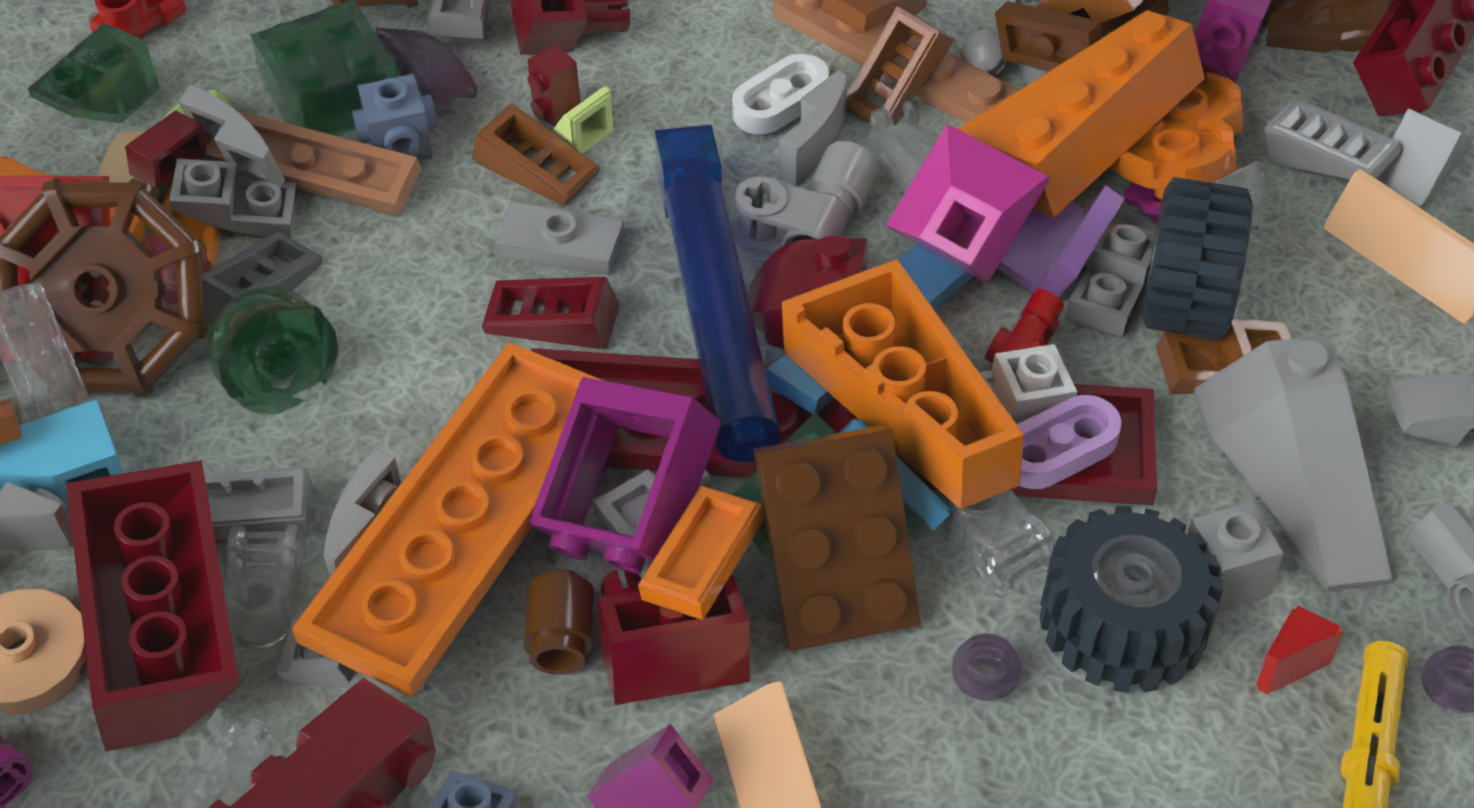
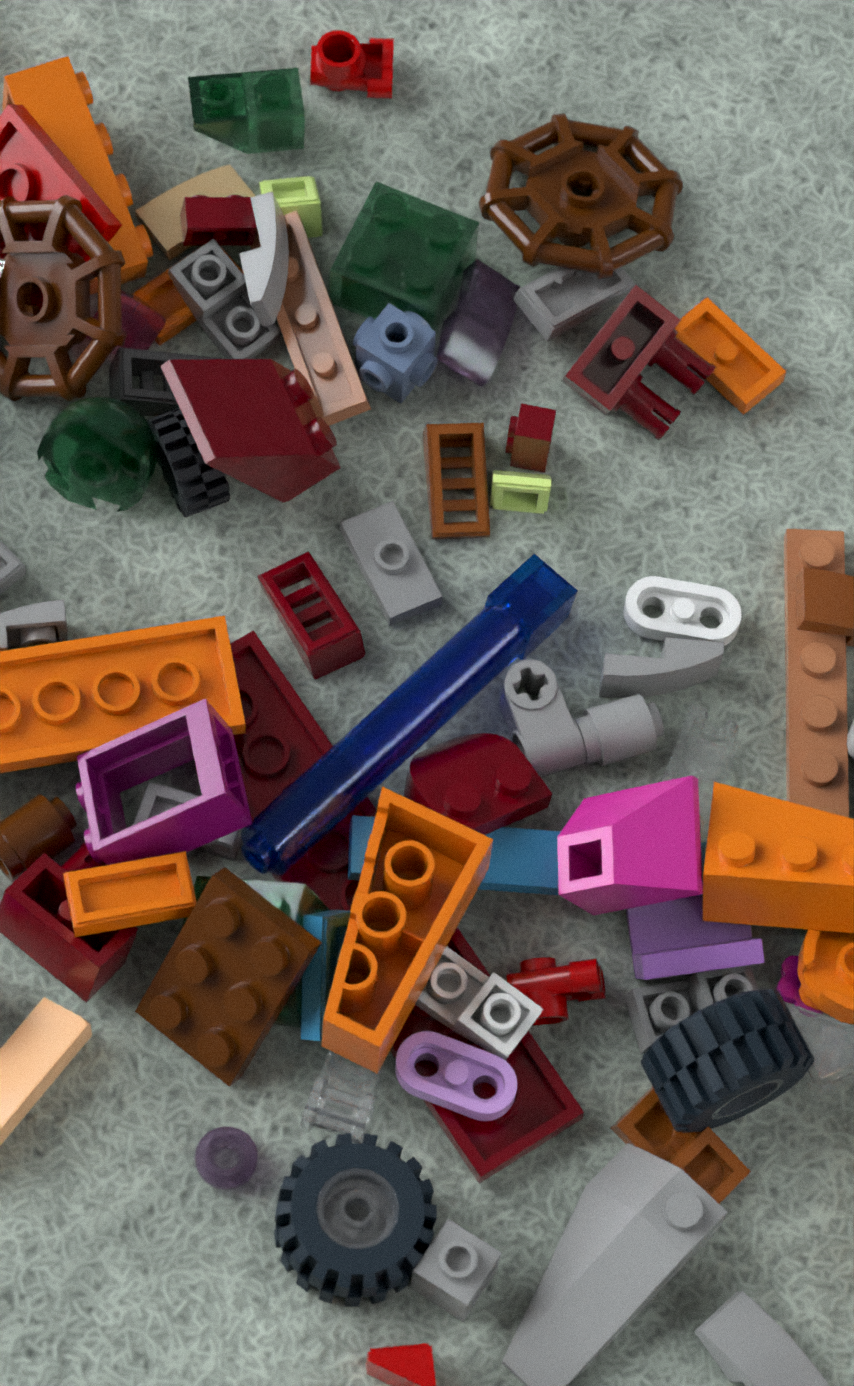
camera: 45 degrees right, 15 degrees up
(348, 287) = (183, 467): none -> black tyre
(367, 220) = (254, 422): none -> dark red slope
(890, 43) = (814, 689): dark orange slope -> none

